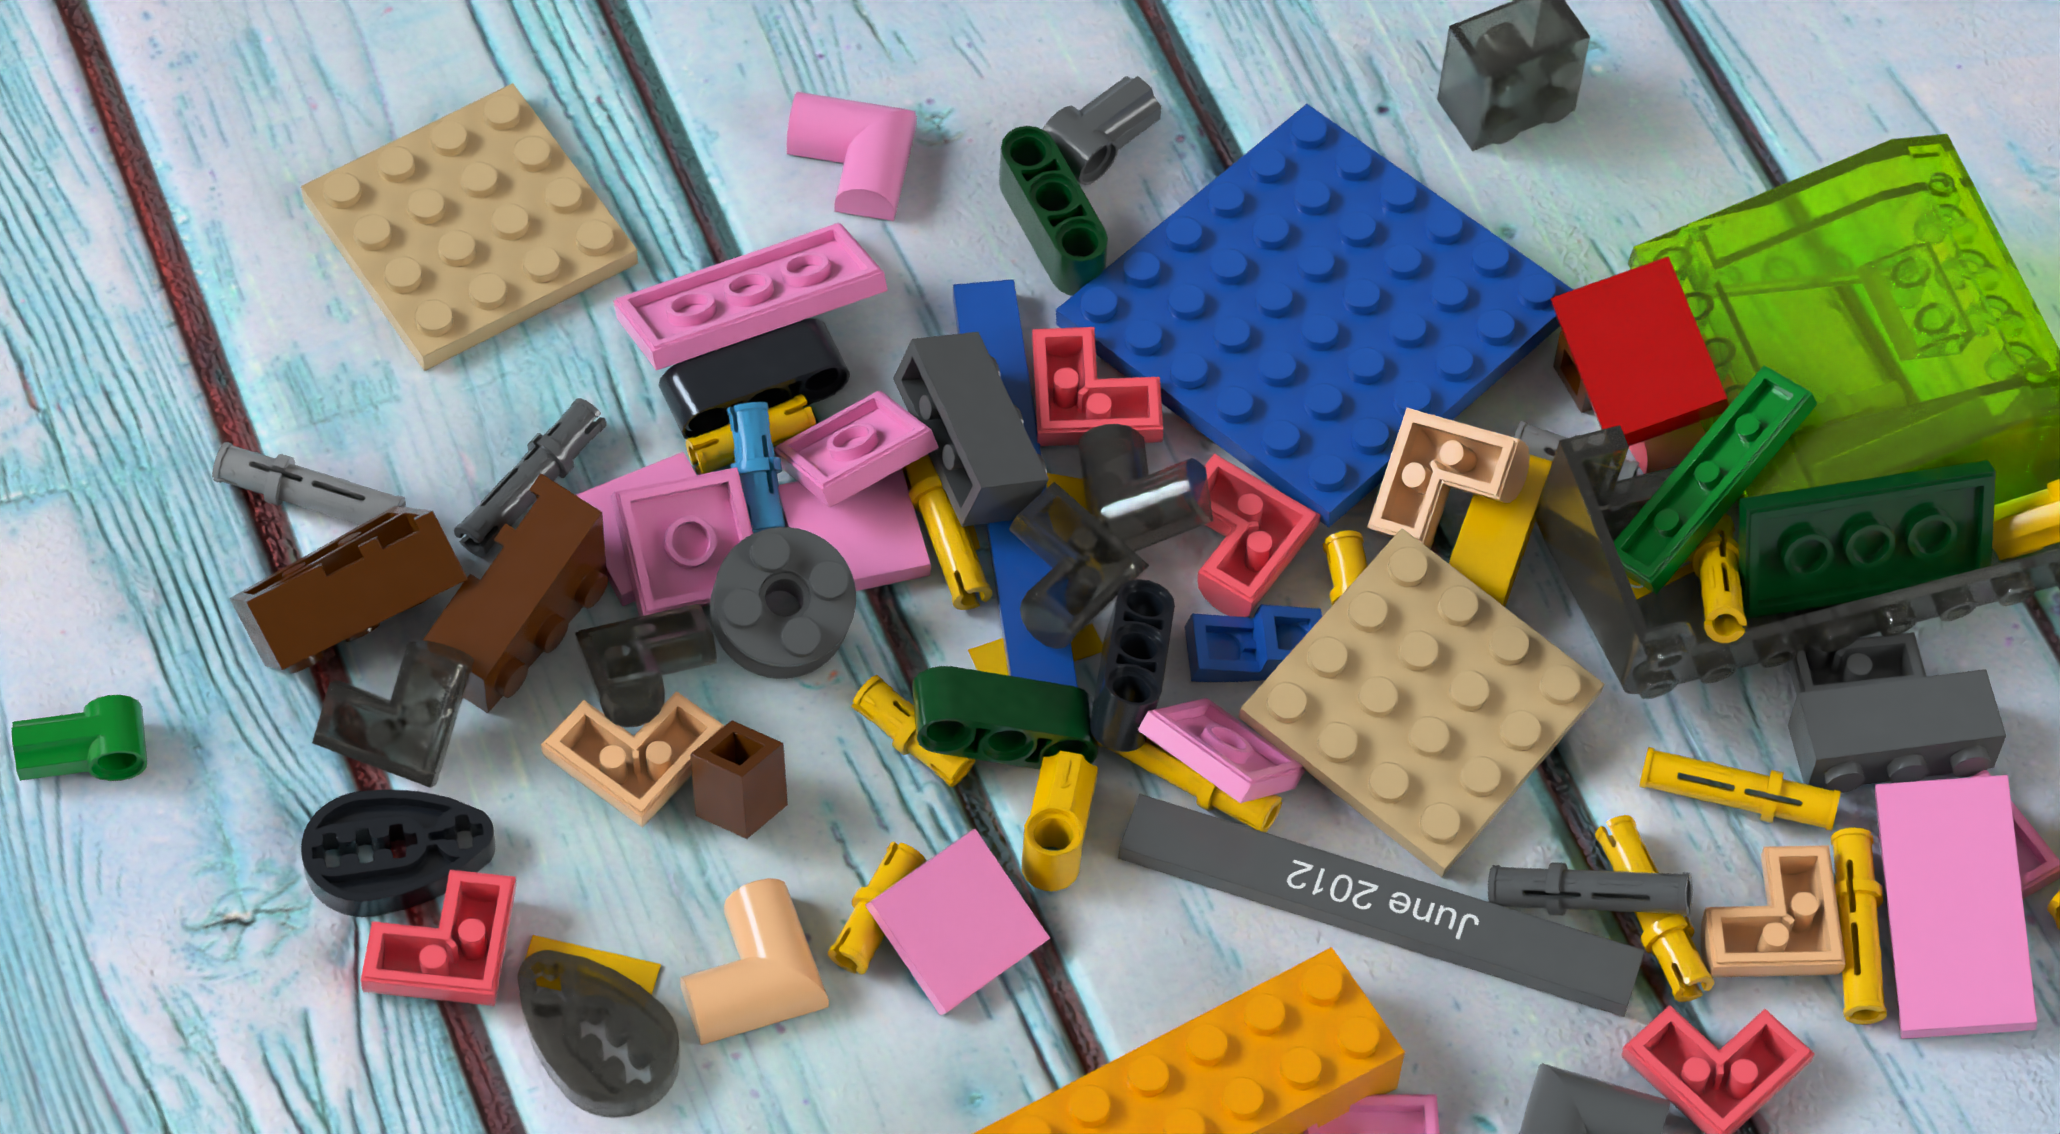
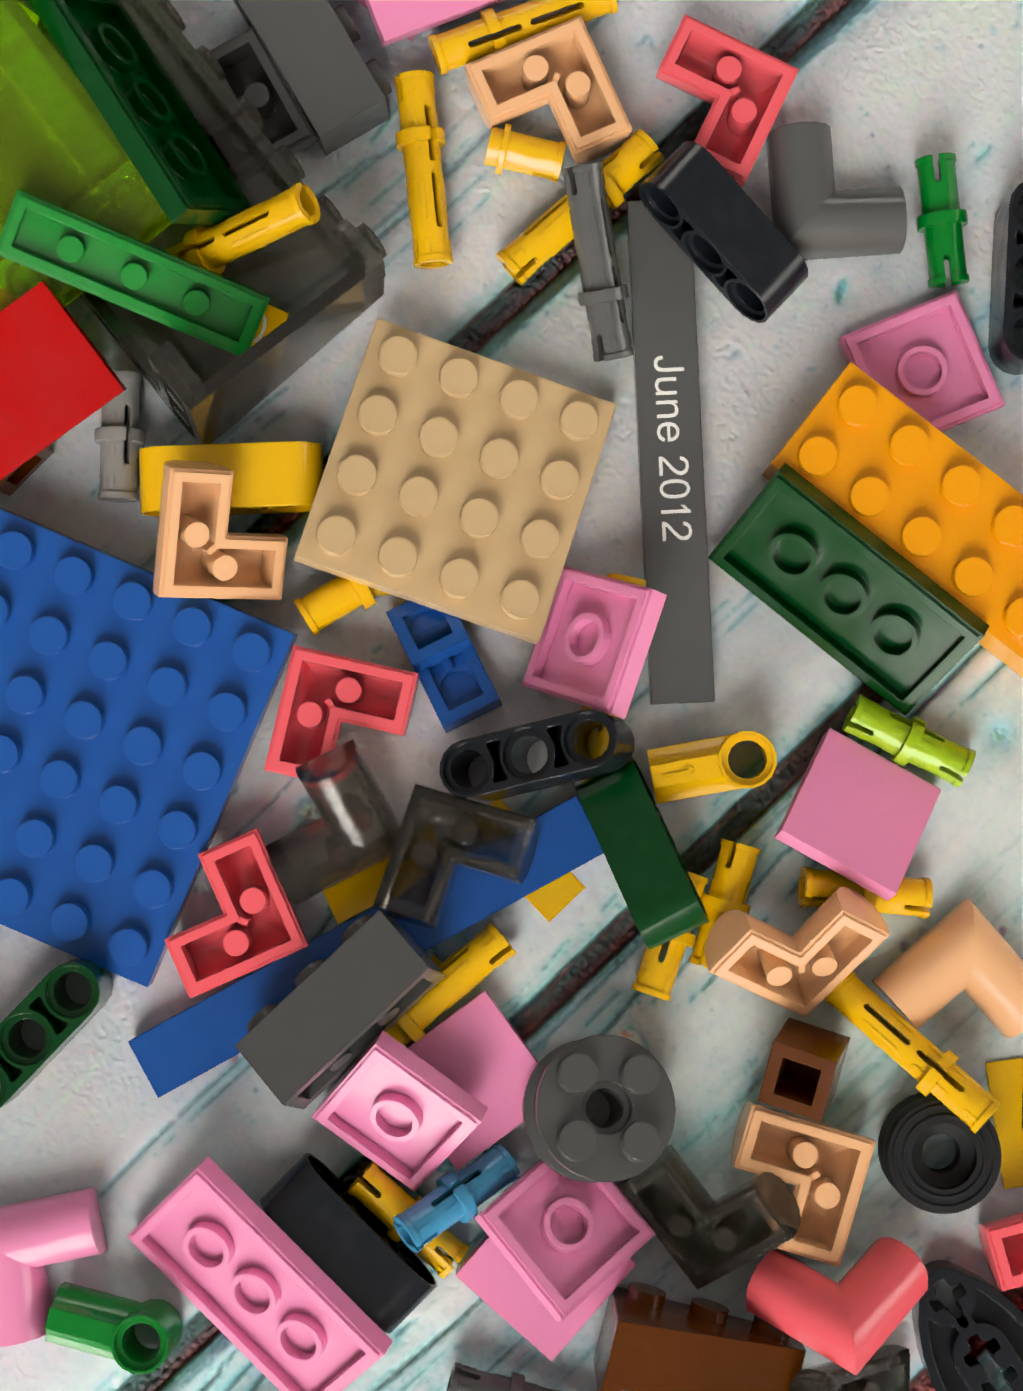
camera: 105 degrees left, 30 degrees up
(499, 725) = (842, 1318): none -> coral brick
(610, 913) = (945, 1189): none -> black tyre
(687, 883) = (914, 1052): none -> yellow pin
(762, 189) = (106, 1326): none -> green piece
(839, 805) = (797, 967): none -> light nougat brick
(919, 787) = (727, 889): none -> yellow pin
(1007, 1002) = (909, 741): none -> lime pin
(1179, 982) = (847, 590): none -> dark green tile
(1578, 1008) = (723, 231): none -> black beam
(1733, 868) = (524, 153): none -> yellow pin

